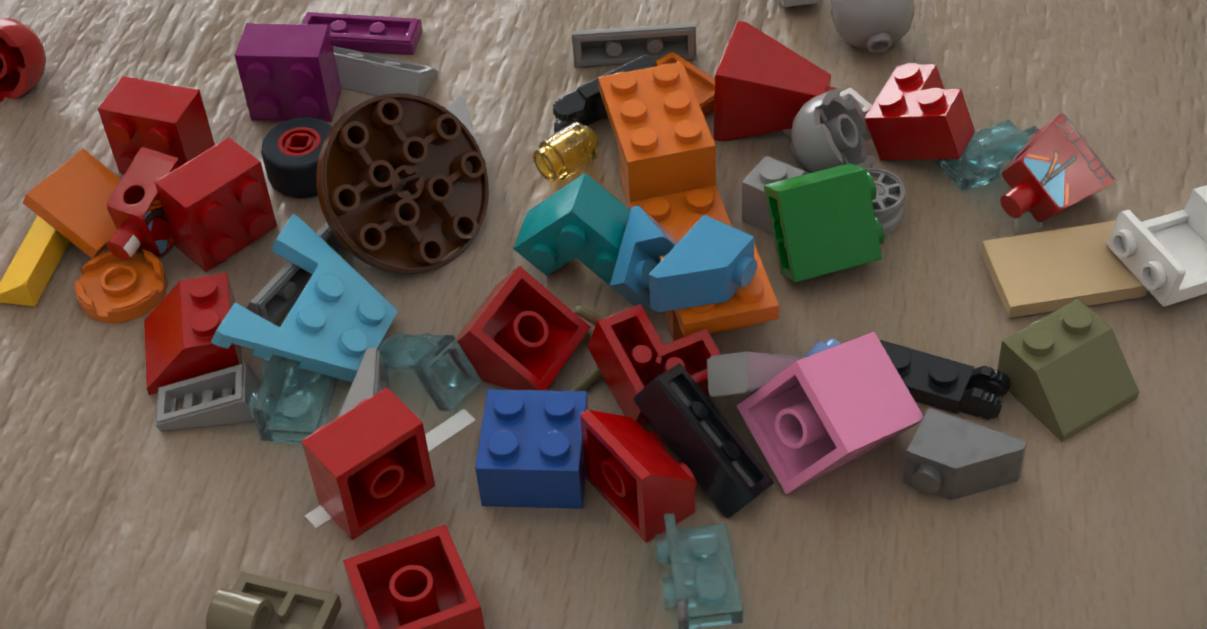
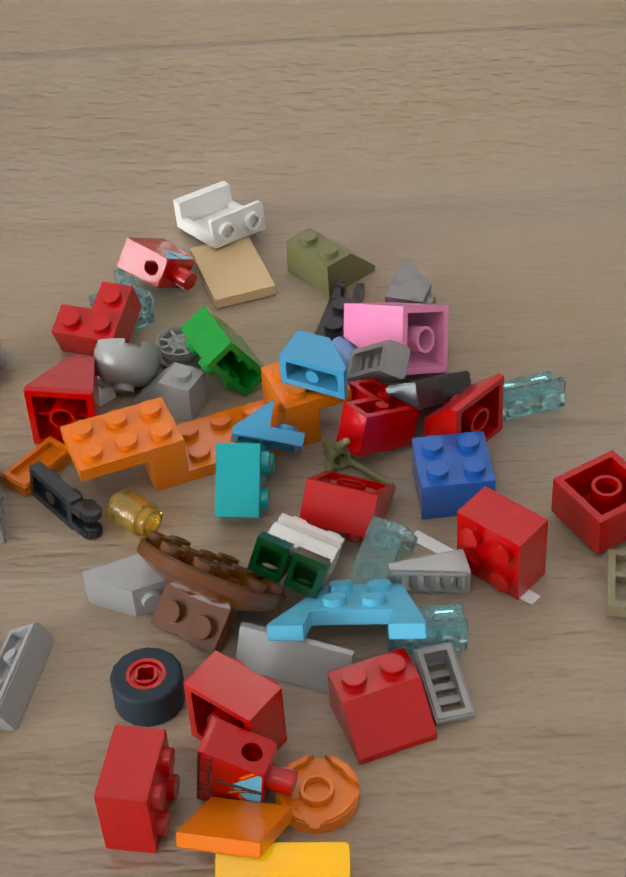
camera: 100 degrees left, 5 degrees down
(288, 71) = (47, 706): magenta brick -> none
(425, 270) = (296, 551): none -> dark green hips

